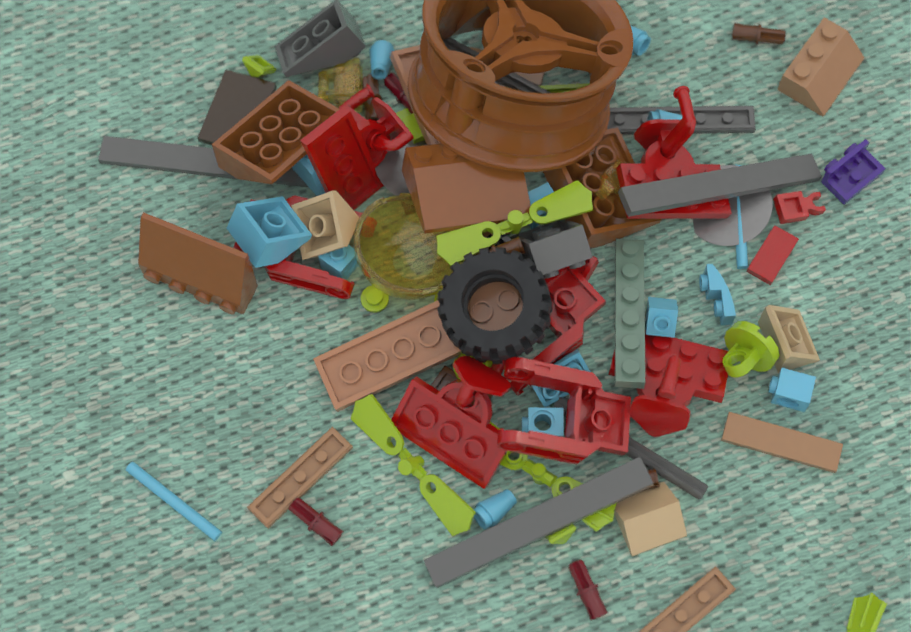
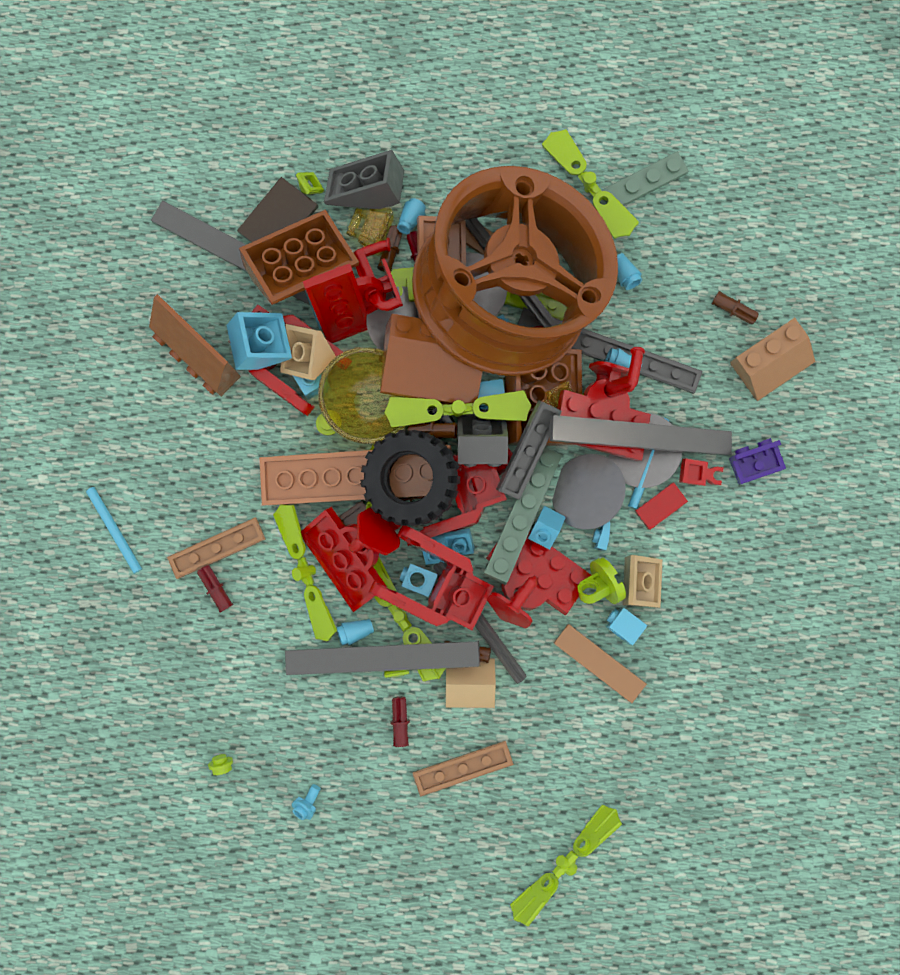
camera: 20 degrees right, 15 degrees up
(608, 240) = (527, 451): none -> dark grey tile
(690, 263) = (589, 491): none -> flat silver sticker

